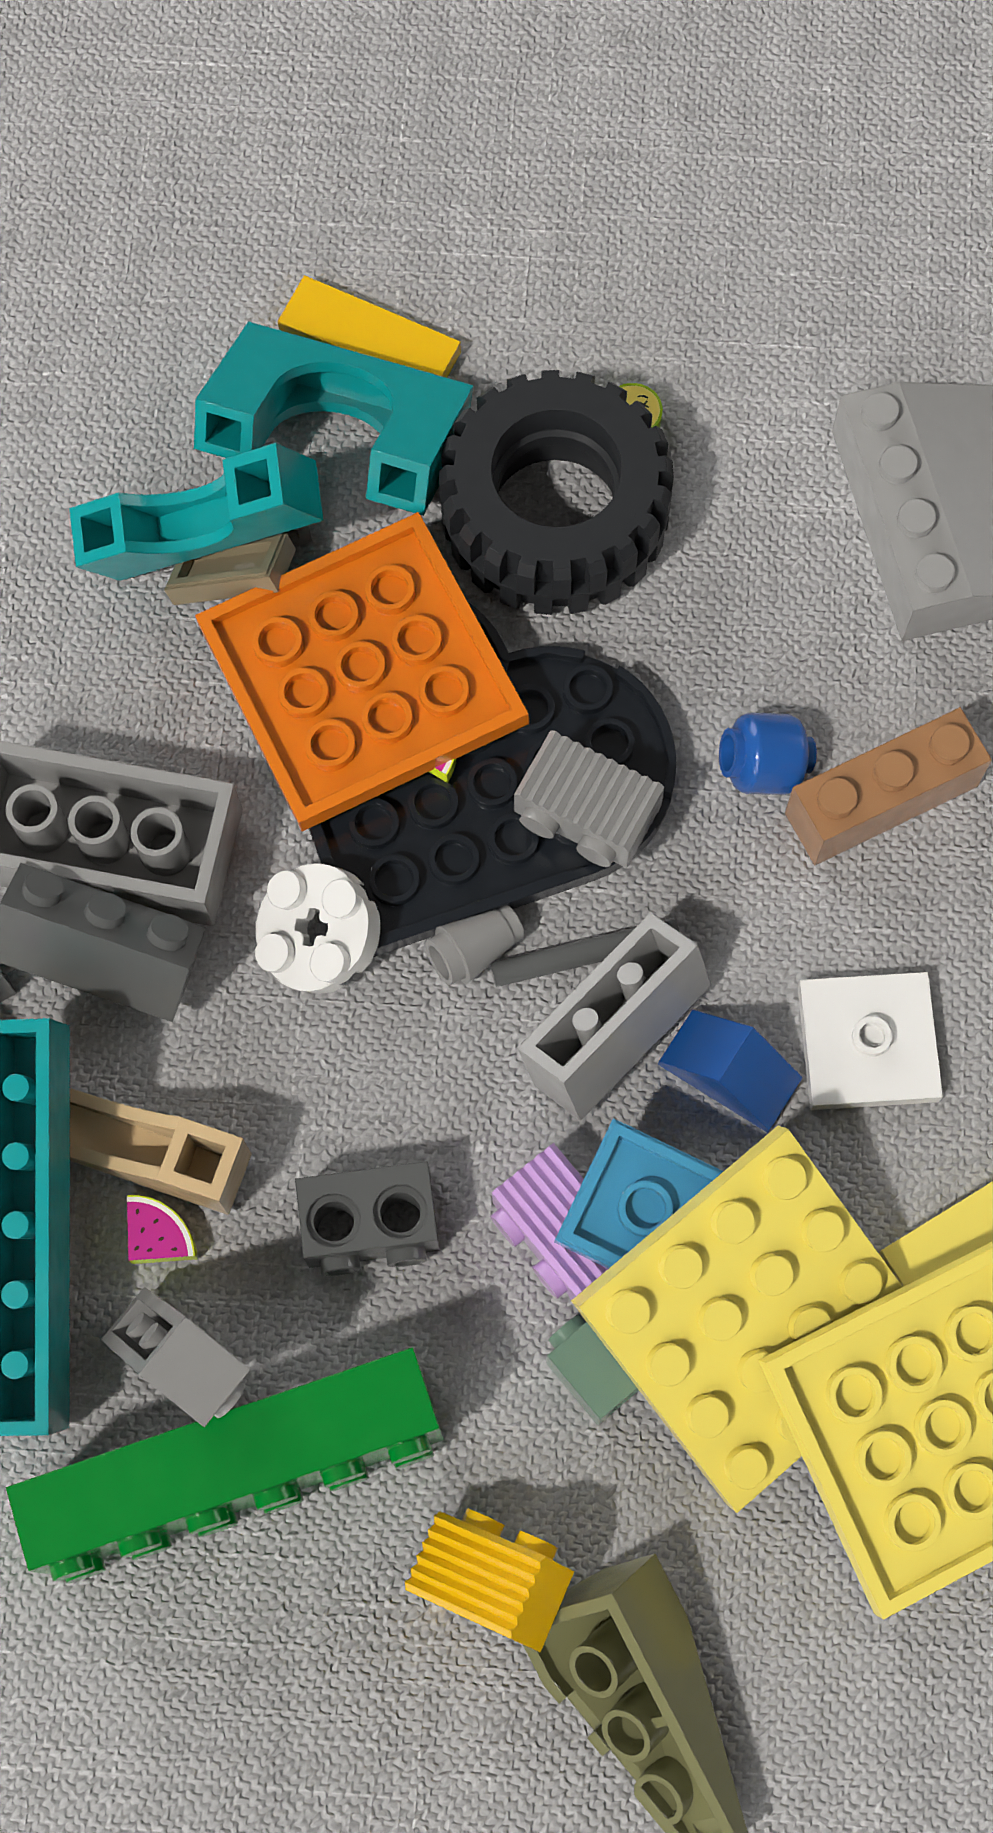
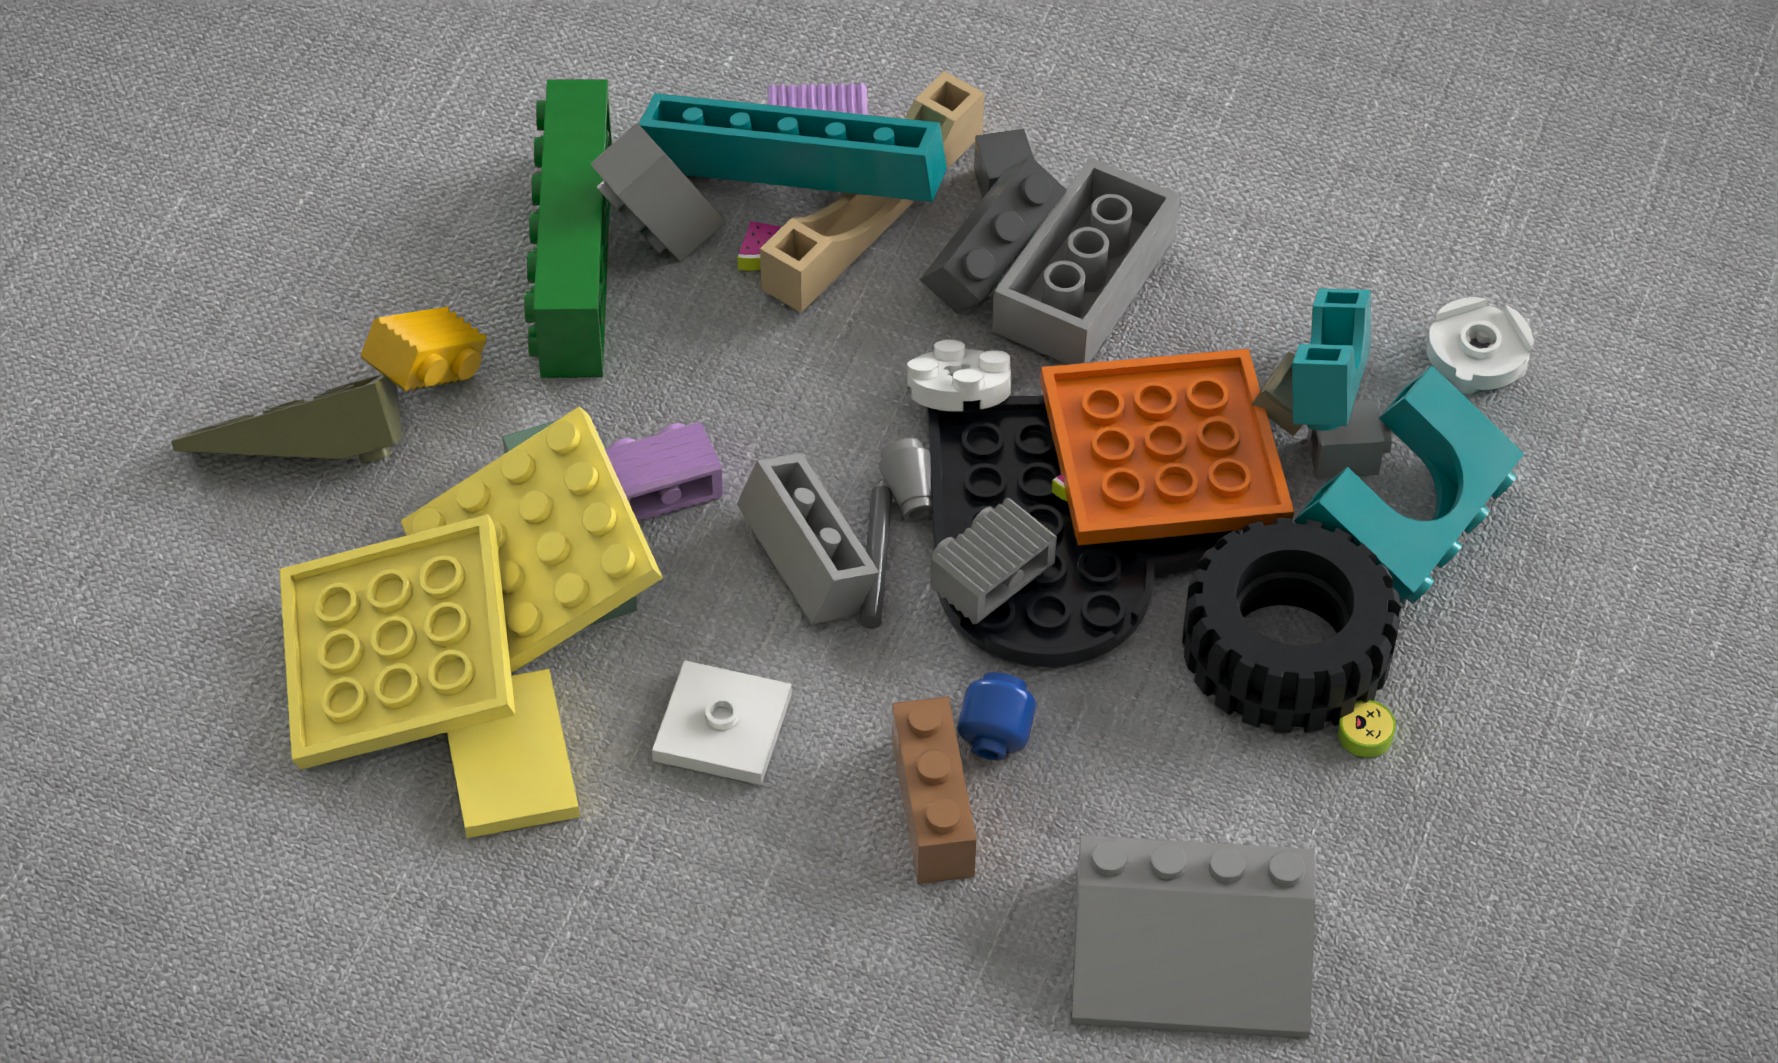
camera: 105 degrees right, 20 degrees down
(90, 442) = (1475, 367): none -> white plate
(362, 327) = (1501, 558): yellow tile -> none
(367, 1197) = (718, 358): dark grey brick -> none
(629, 1193) = (660, 488): dark azure plate -> none
(732, 1067) = (735, 619): blue slope -> none

